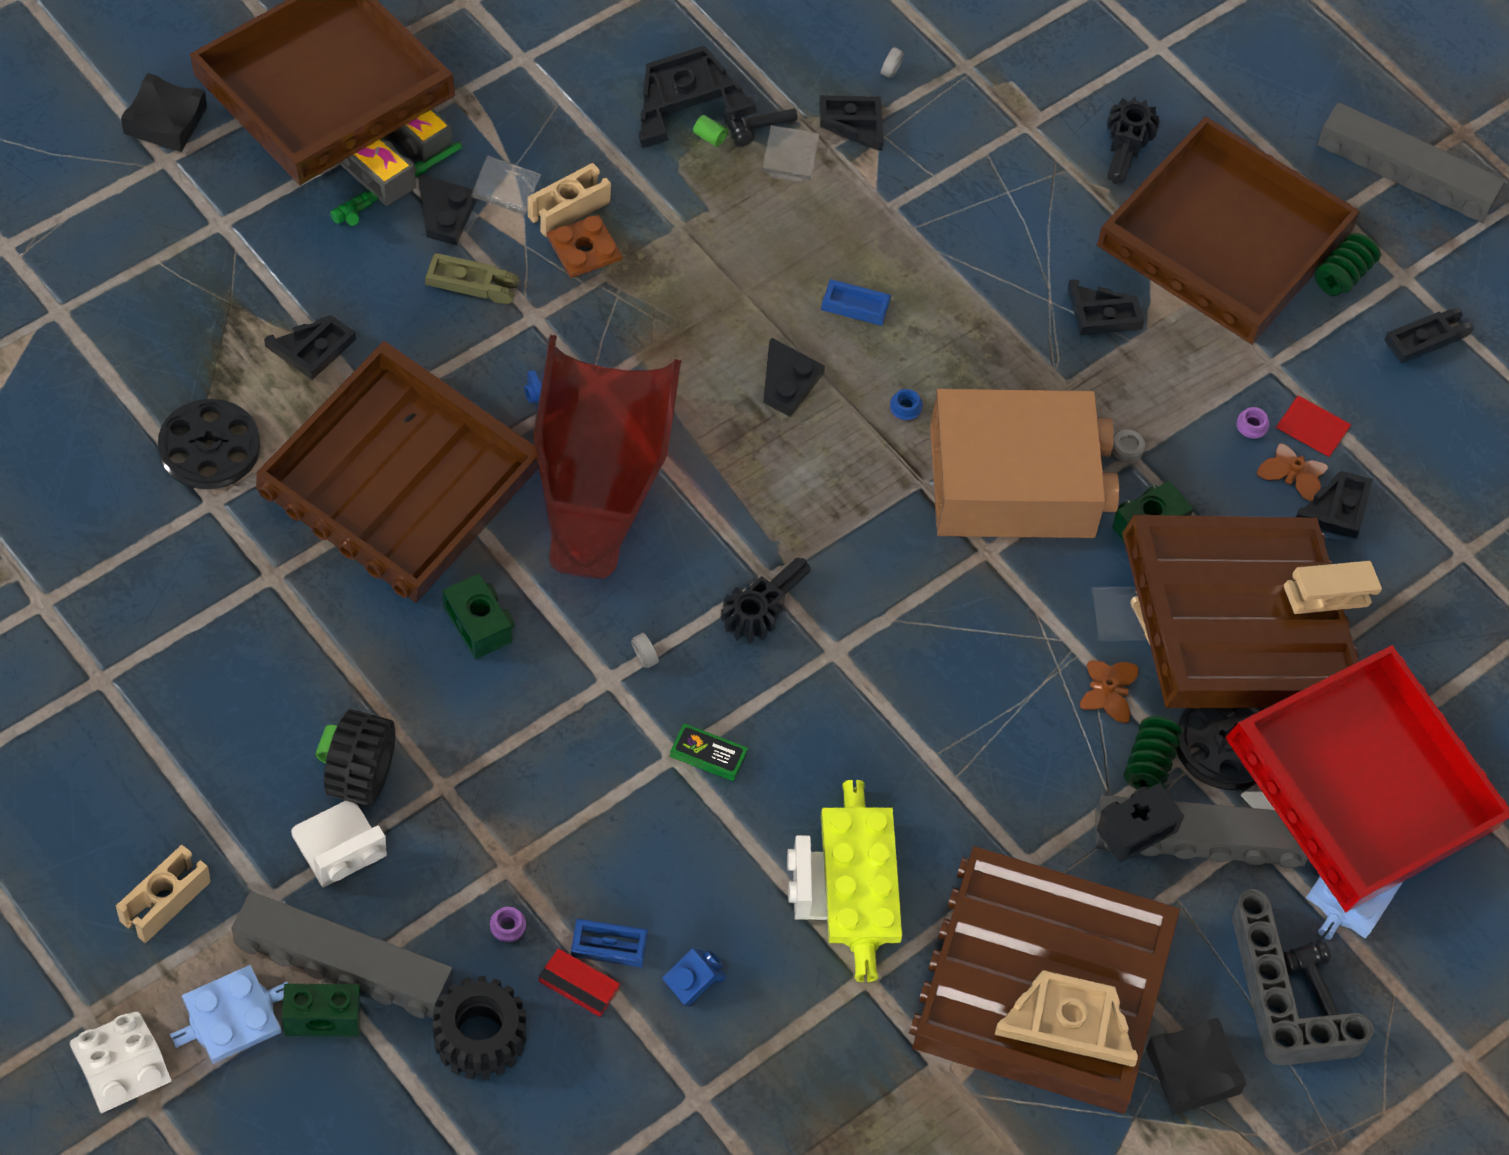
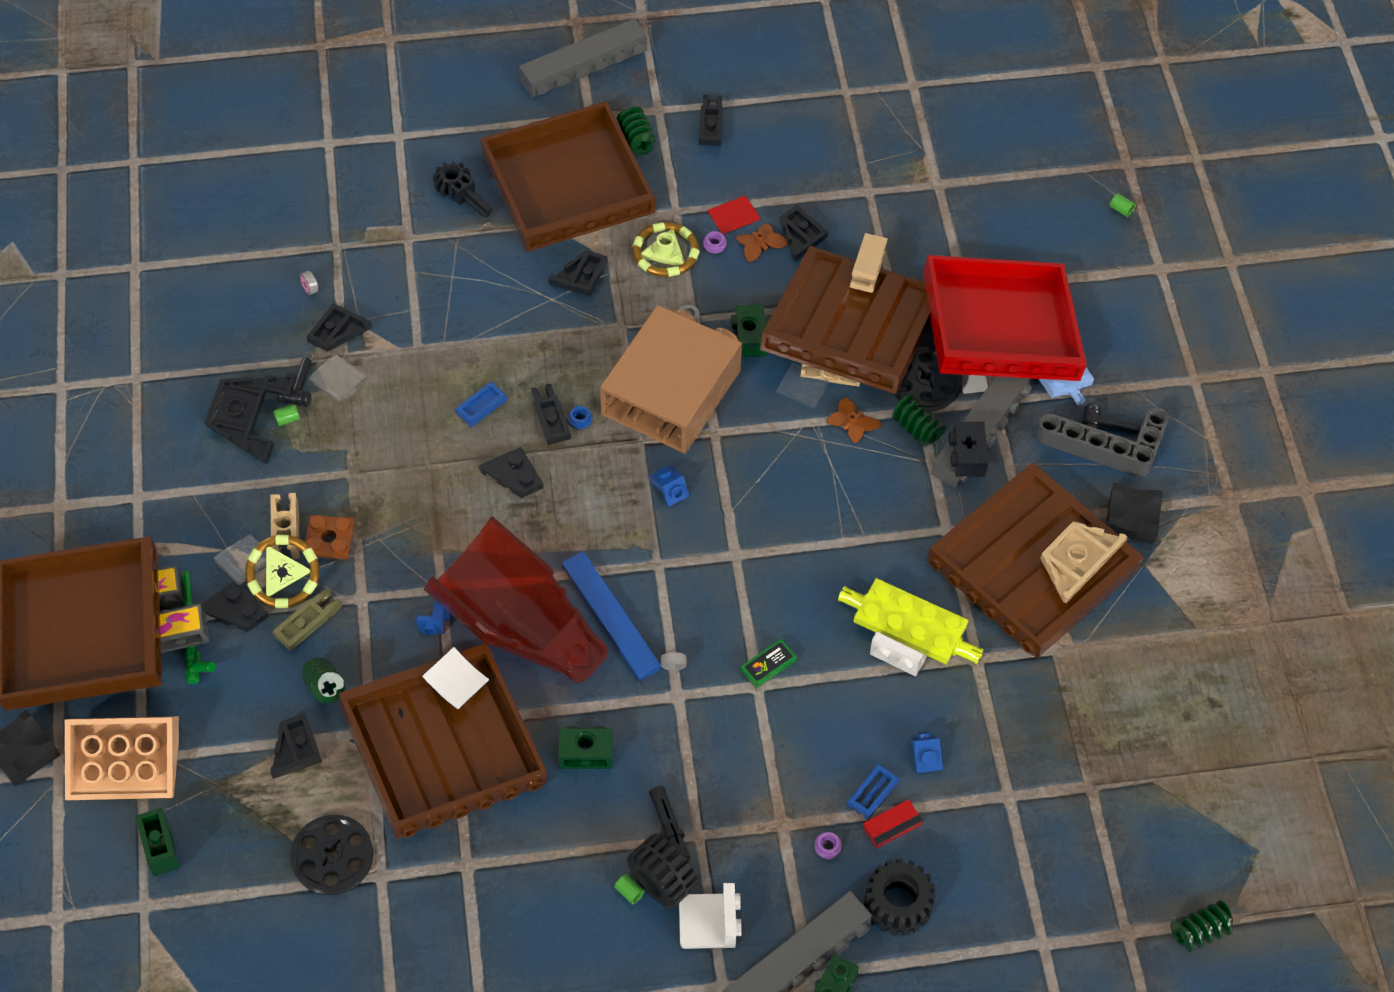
camera: 55 degrees left, 0 degrees up
(125, 279) = (157, 841): none -> dark green brick
(207, 200) = (121, 757): none -> light nougat slope
(399, 323) = (322, 680): none -> dark green piece
(423, 756) = (667, 819): none -> black pin
(476, 441) = (455, 678): none -> white sticker
(508, 222) = (282, 571): none -> piece
(666, 562) = (611, 616): none -> blue tile
(762, 599) = (679, 573): black gear -> none
(877, 537) = (671, 484): none -> blue bracket
(887, 373) = (550, 416): none -> black hinge
(1205, 378) = (665, 249): none -> yellowish green piece

